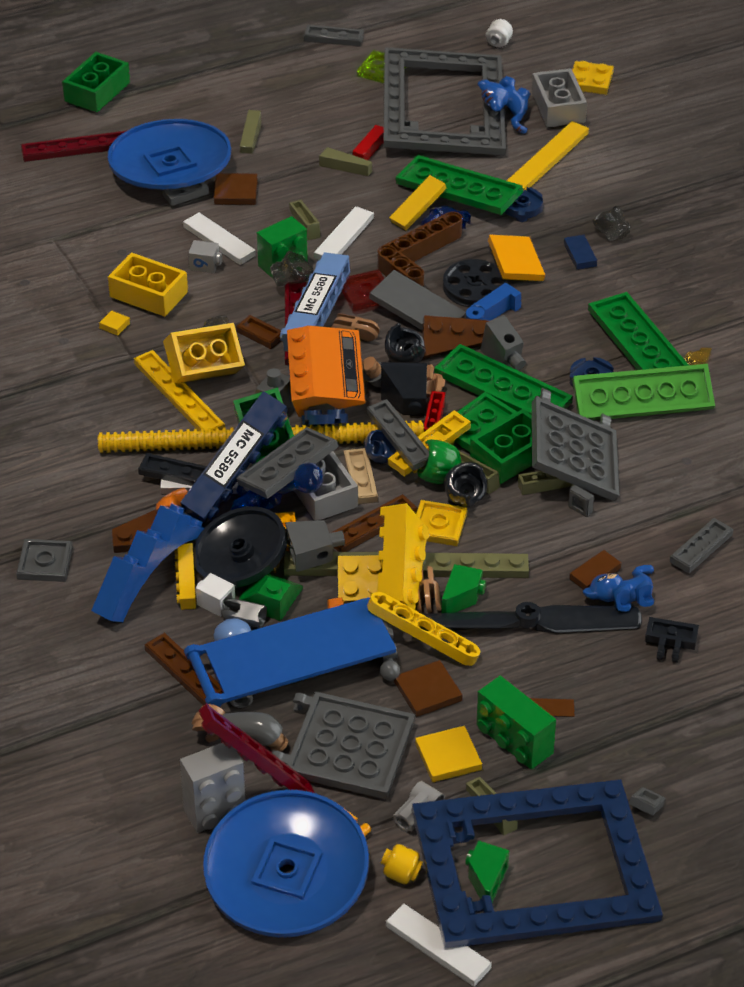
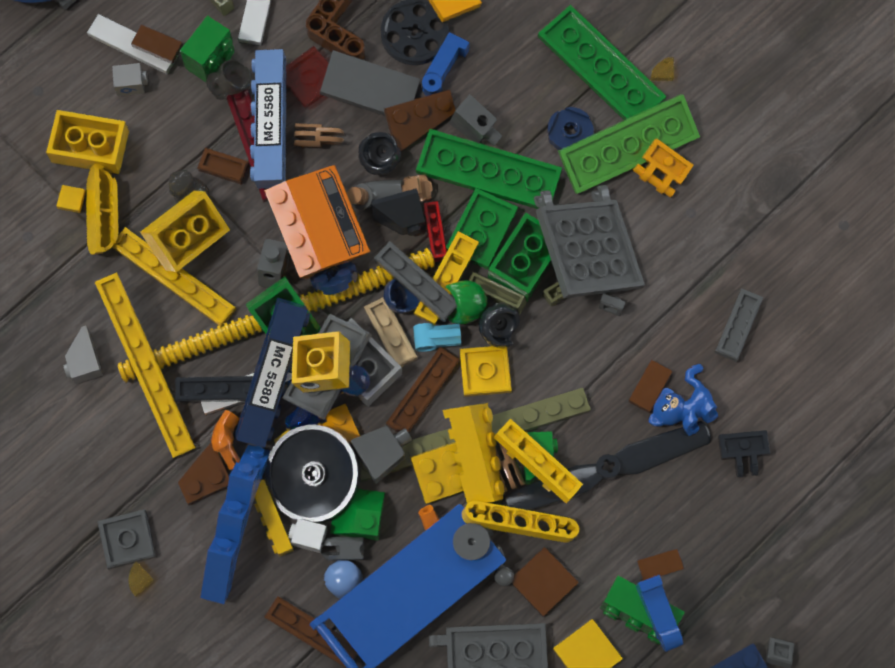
camera: 20 degrees left, 30 degrees up
(41, 590) = (138, 579): none -> clear yellow tile
(69, 424) = (82, 358): none -> light grey slope
(123, 437) = (145, 365): none -> yellow tile
(138, 331) = (101, 210): none -> yellow brick
(238, 238) = (156, 44): none -> reddish brown tile
(281, 445) = (321, 362): none -> yellow brick
(367, 622) = (471, 541): none -> dark grey piece
(395, 483) = (429, 337): none -> medium azure piece
(448, 568) = (538, 461): none -> yellow hinge
(529, 704) = (659, 613): none -> blue leg
(674, 411) = (668, 162): none -> light orange plate

